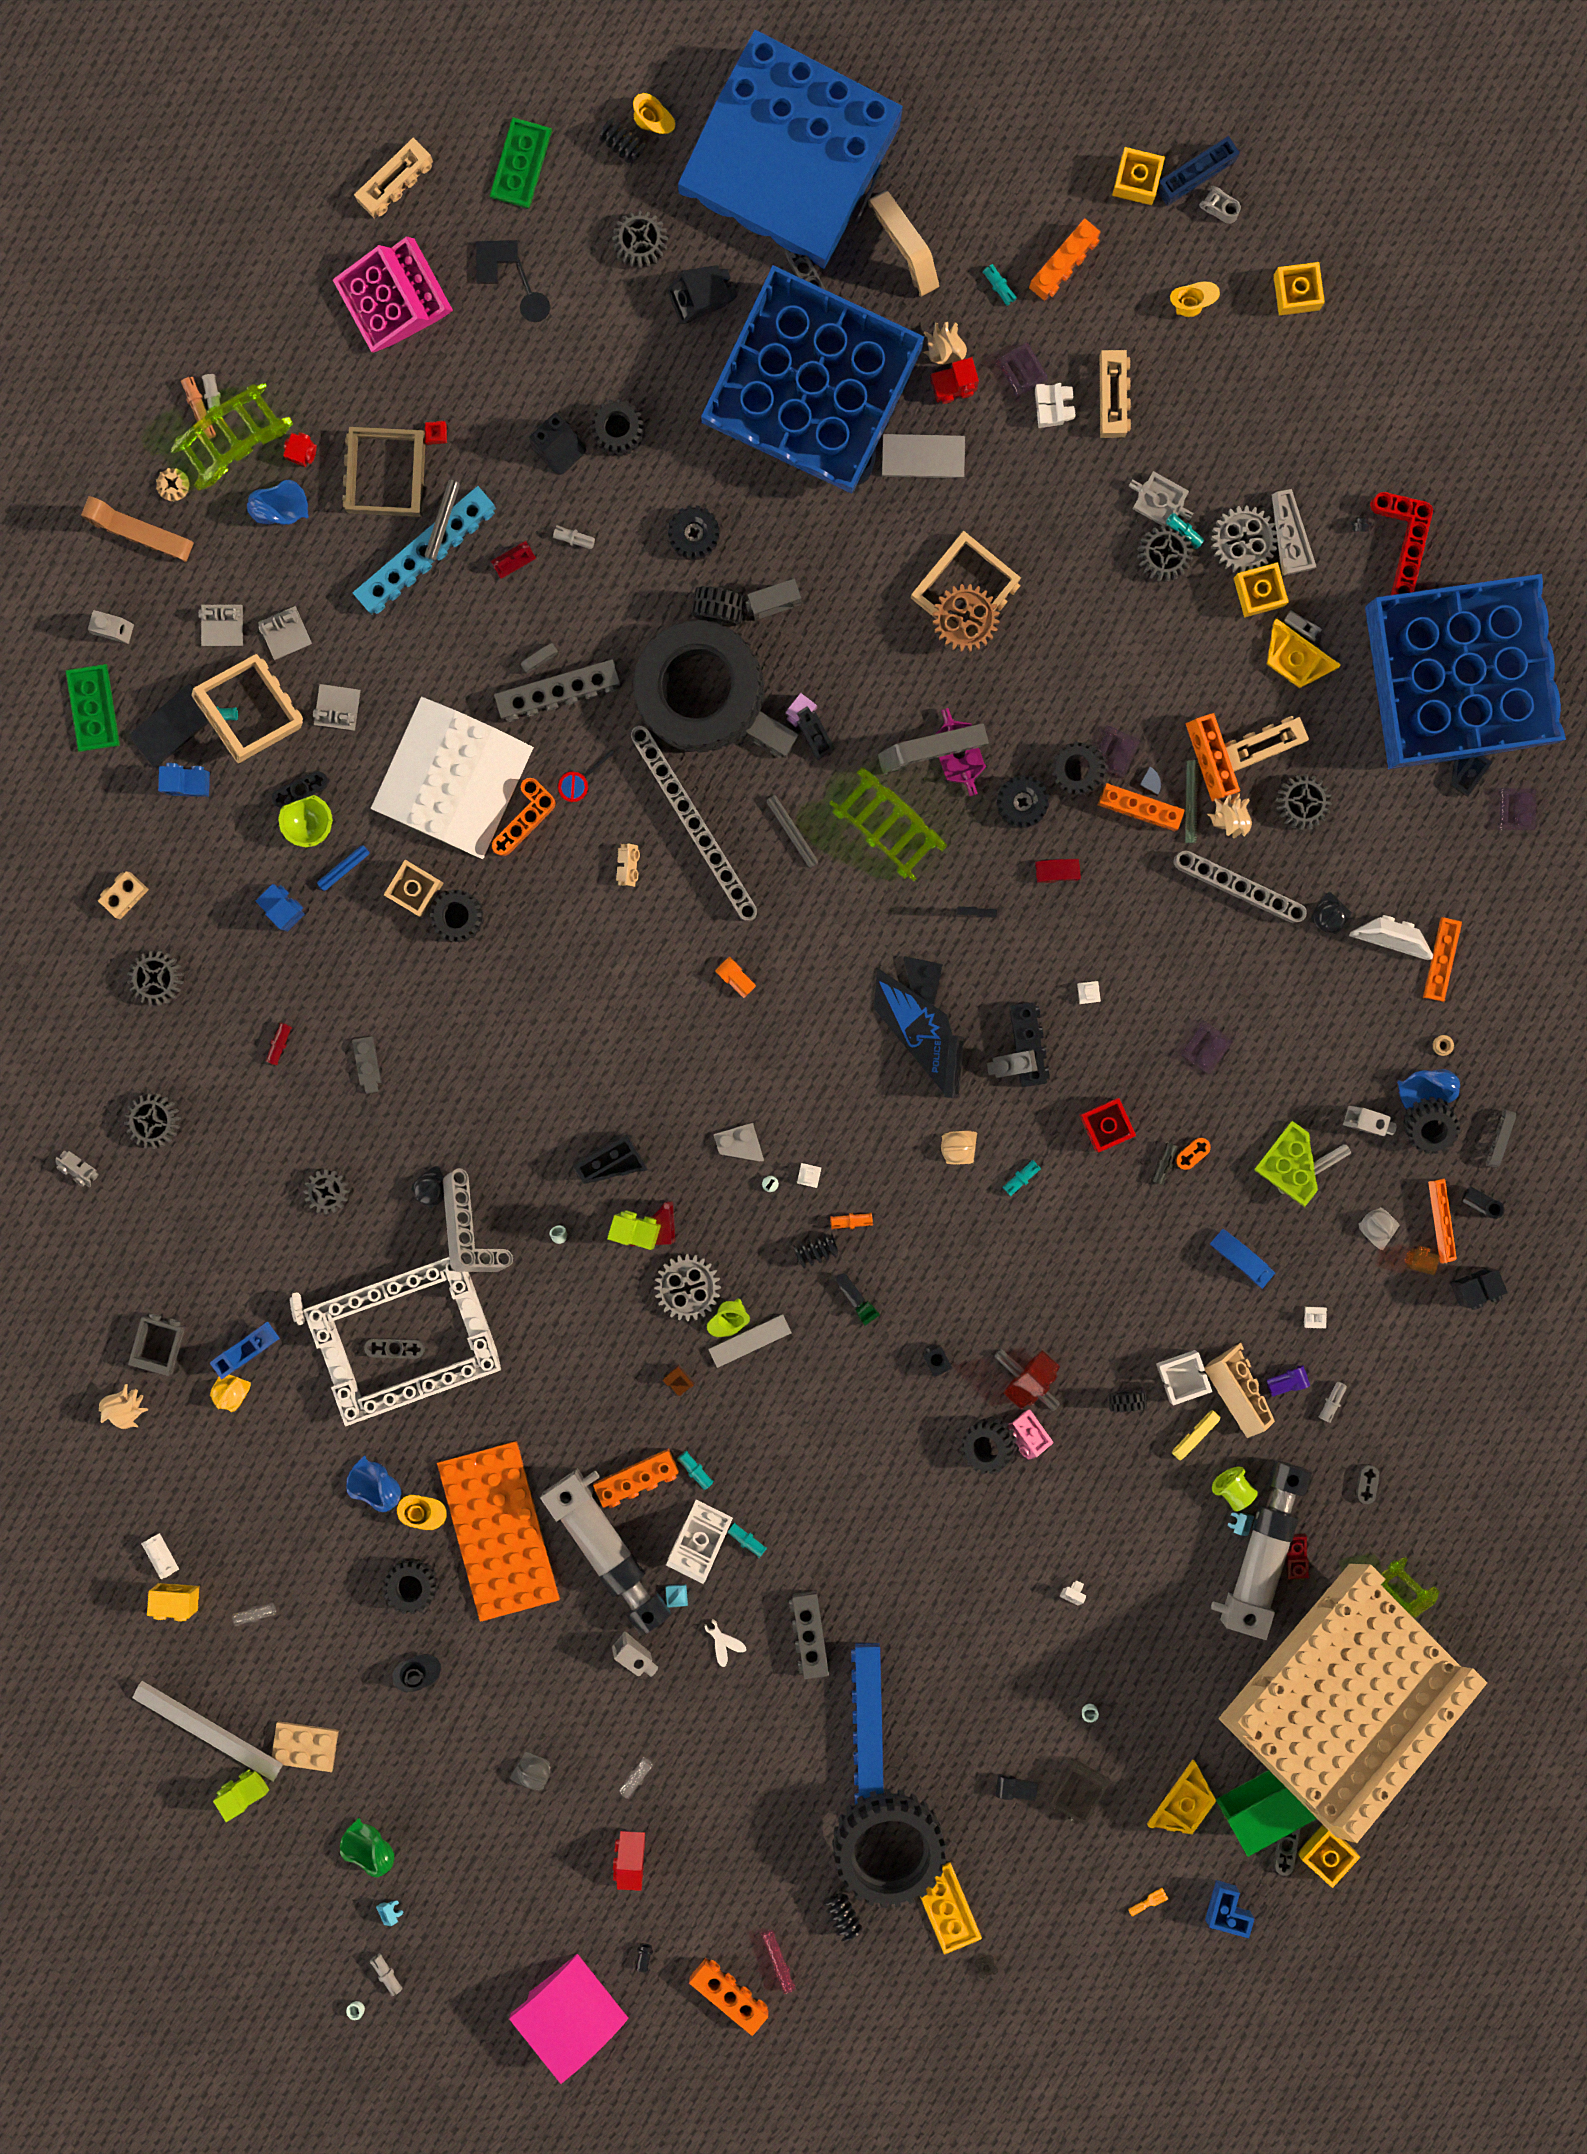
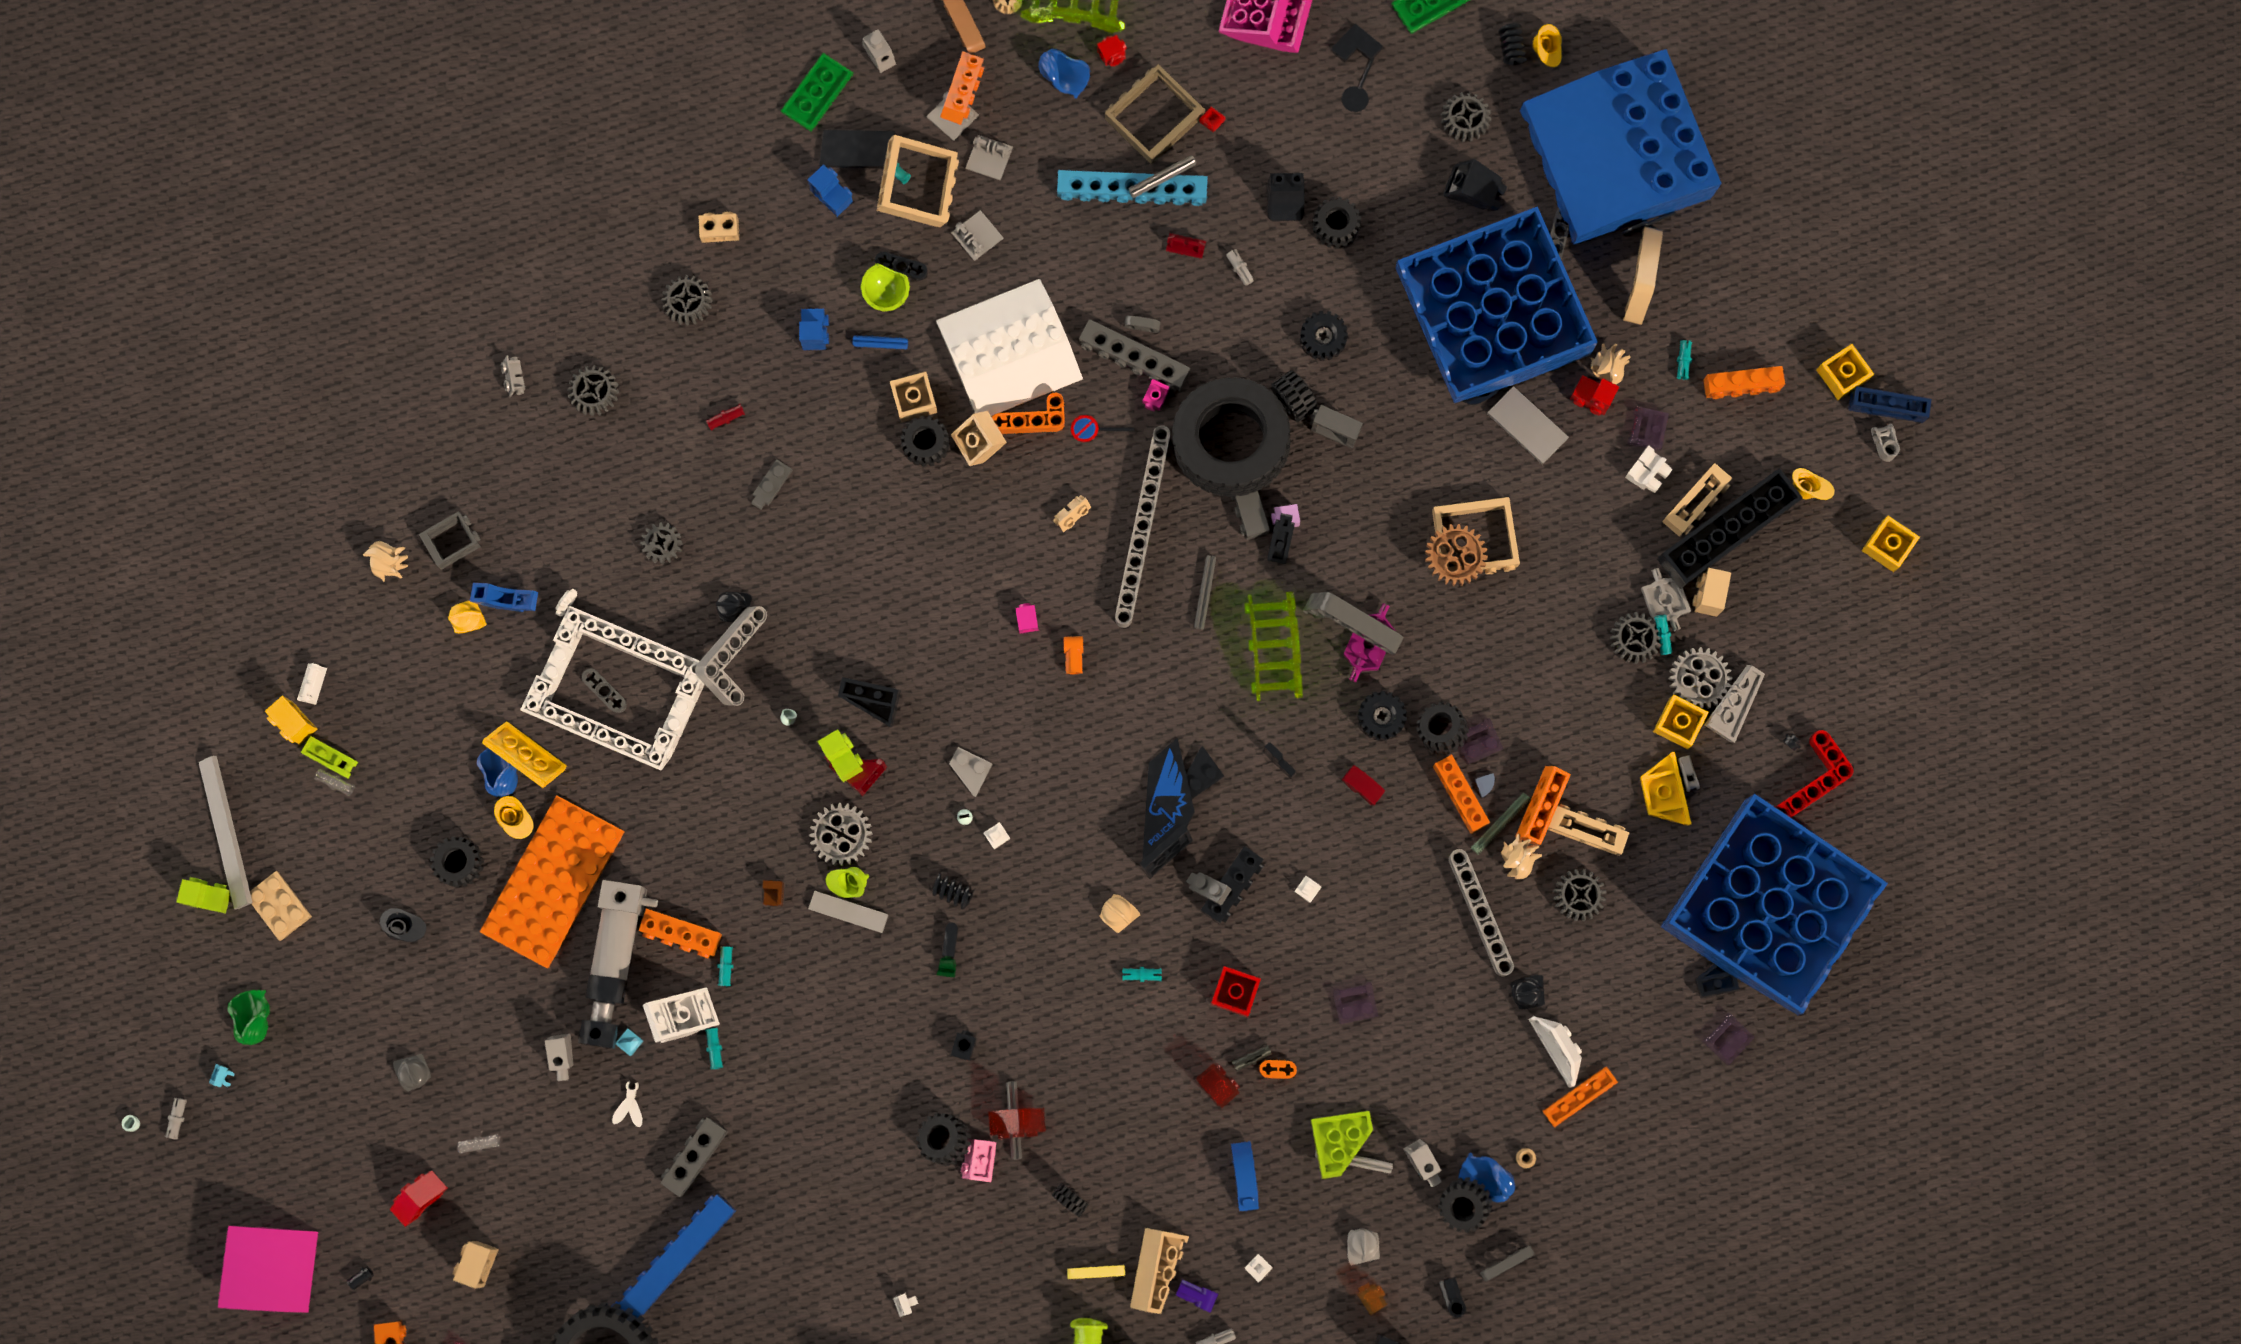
camera: 40 degrees right, 10 degrees down
(209, 596) = (961, 89): none -> orange brick
(230, 1599) = (328, 757): none -> lime plate
(381, 1456) = (524, 754): none -> yellow tile
(498, 874) = (978, 438): none -> tan brick
(605, 699) = (1155, 403): none -> dark pink brick
(671, 983) = (1026, 618): none -> dark pink brick
(722, 1869) = (475, 1264): none -> tan brick
(851, 1221) = (996, 894): orange pin -> none
(1160, 1210) = (1217, 1085): none -> clear red brick
(1161, 394) = (1729, 528): none -> black brick
(1182, 1377) = (1125, 1221): white piece -> none
(1193, 460) = (1712, 592): none -> tan brick
(1442, 1220) = (1412, 1282): orange tile -> none

